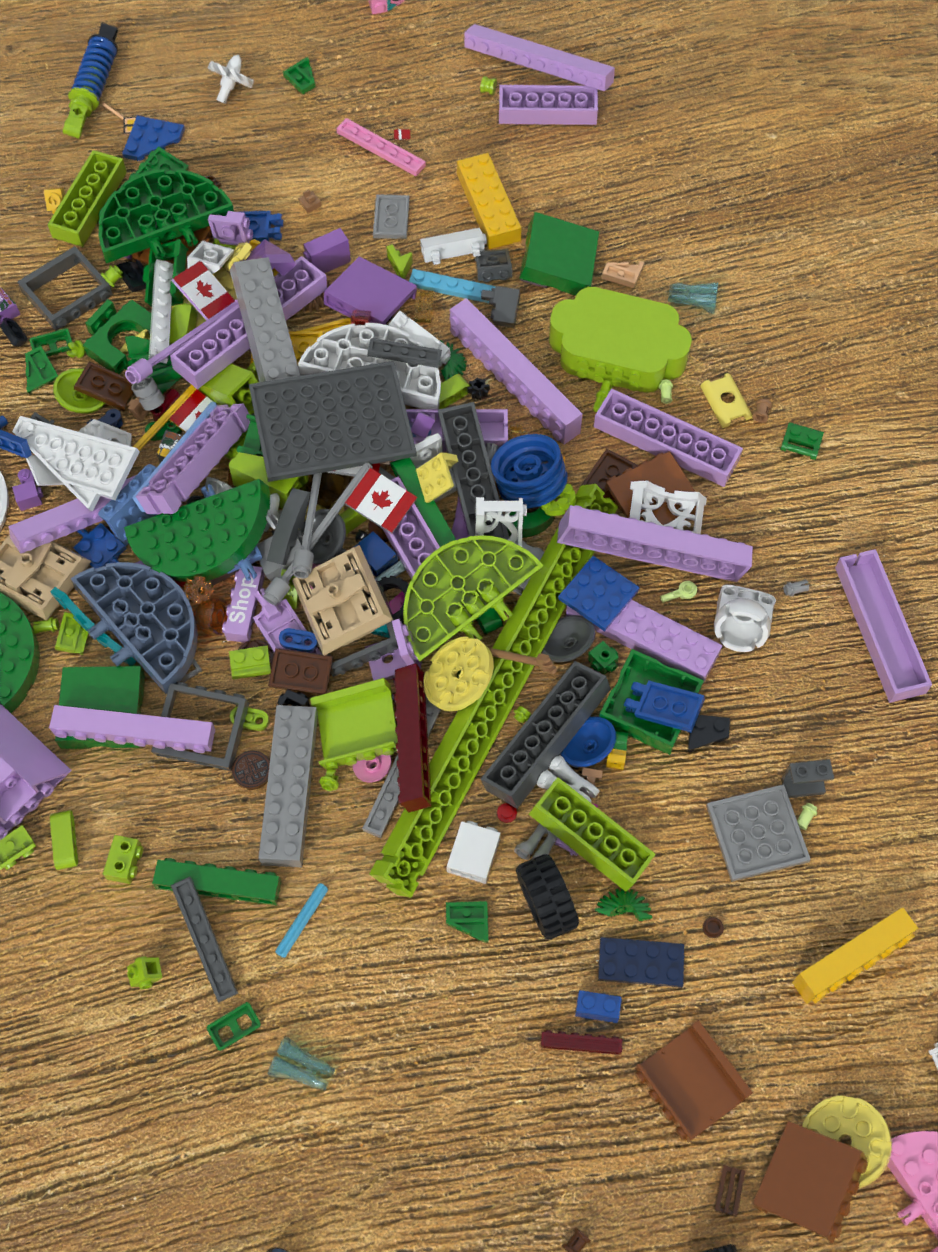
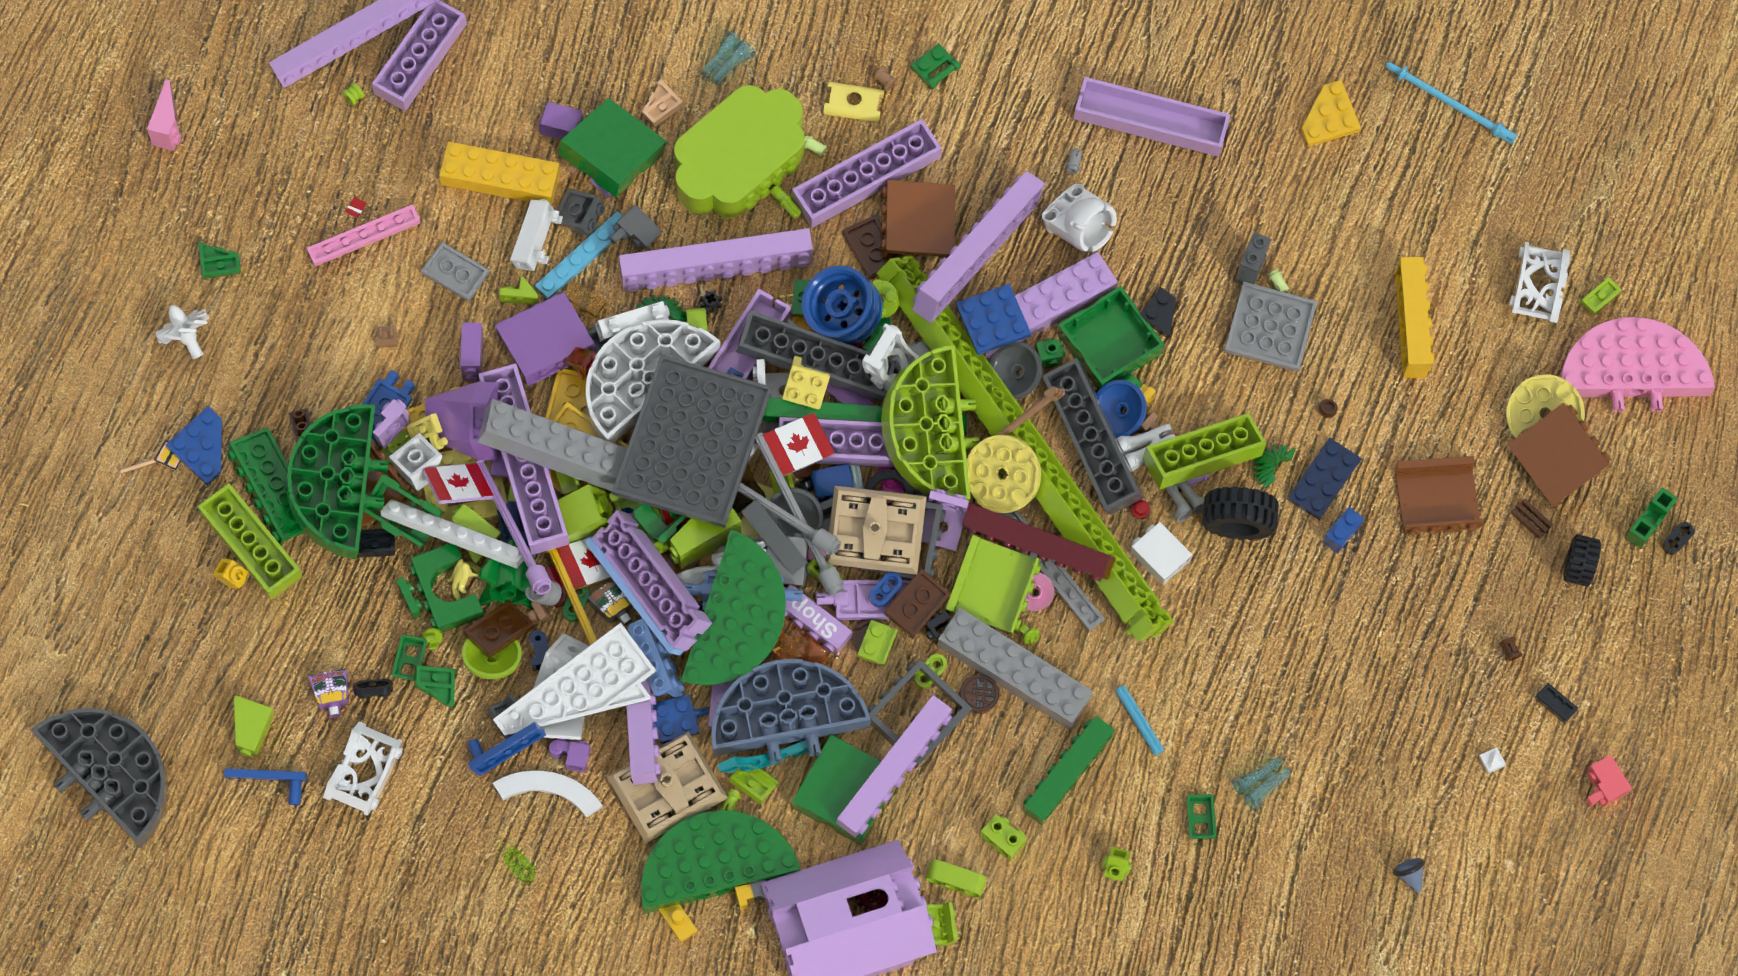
camera: 65 degrees left, 5 degrees up
(54, 269) = (358, 648): dark grey window -> none
(91, 78) = (80, 460): piece -> none
(112, 275) = (368, 562): lime brick -> none
(204, 939) = (1115, 802): dark grey tile -> none
(404, 352) = (652, 341): dark grey tile -> none
(422, 424) = (734, 365): medium lavender panel -> none
(469, 918) = (1215, 588): green wing -> none
(521, 714) = (1060, 447): lime plate -> none
(560, 209) = (559, 120): none -> medium lavender piece
(581, 1043) = (1365, 557): dark red piece -> none
(646, 491) = (941, 238): white fence -> none
(665, 705) = (1124, 328): blue tile -> none
(685, 591) = (1022, 249): yellowish green plate -> none

